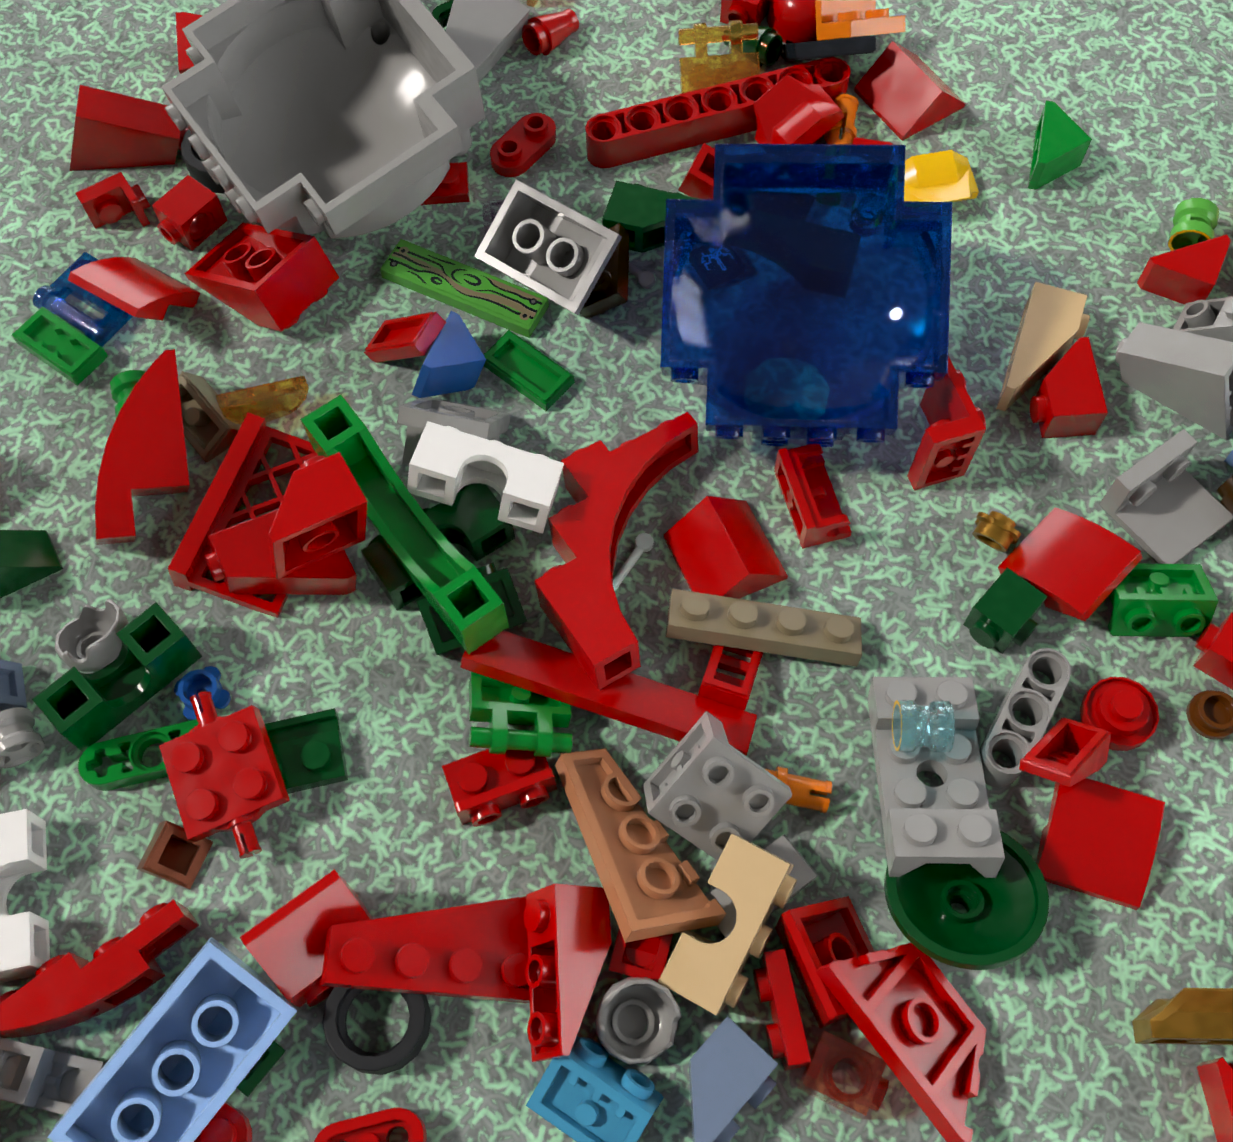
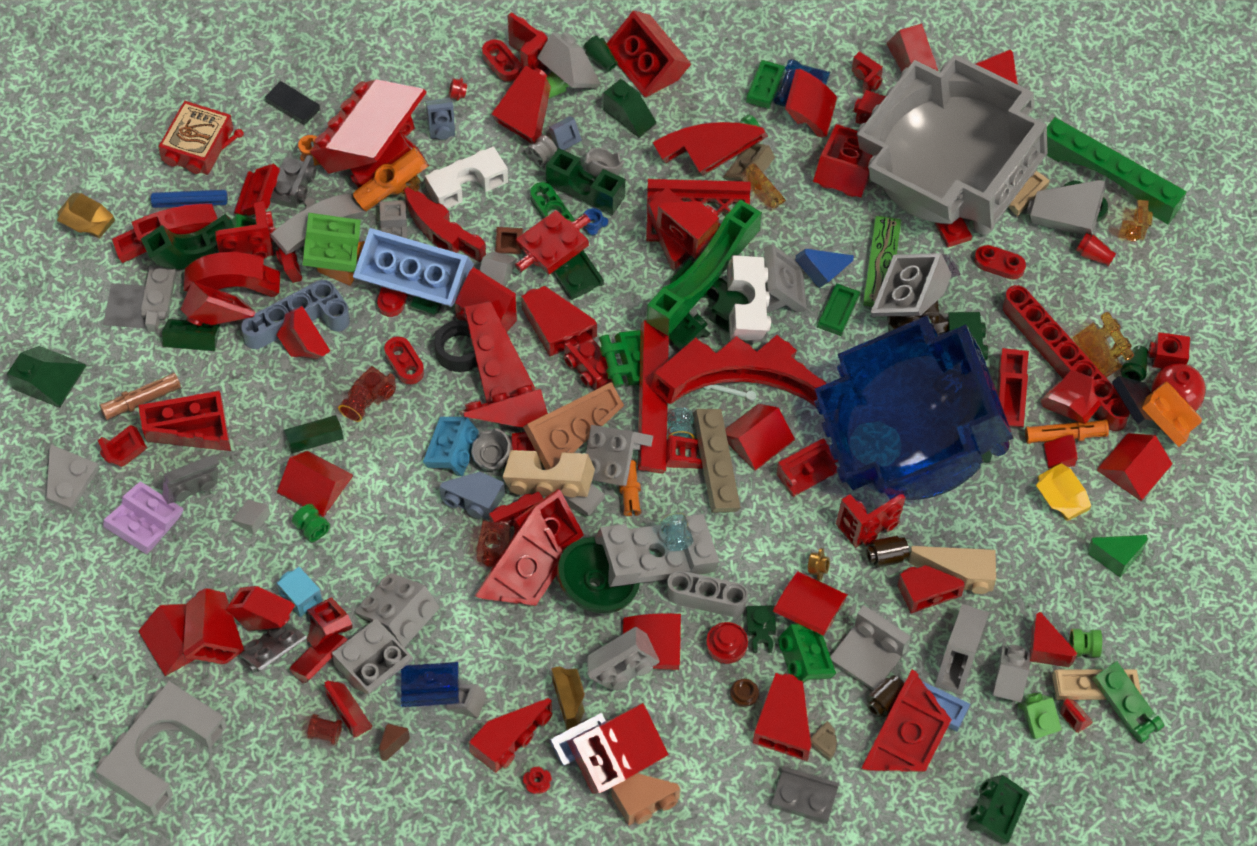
camera: 70 degrees right, 5 degrees down
(234, 895) = (498, 266): none -> light grey slope
(388, 817) = (556, 319): none -> red slope
(405, 337) = (829, 239): red tile -> none
(679, 664) = (680, 423): none -> clear light blue wheel
(1001, 431) = (887, 551): none -> dark brown brick
(1005, 612) = (767, 575): dark green brick -> none
(1068, 752) = (688, 609): red slope -> none
(1089, 653) = (761, 623): none -> dark green plate
(1160, 901) = (622, 660): none -> light grey slope

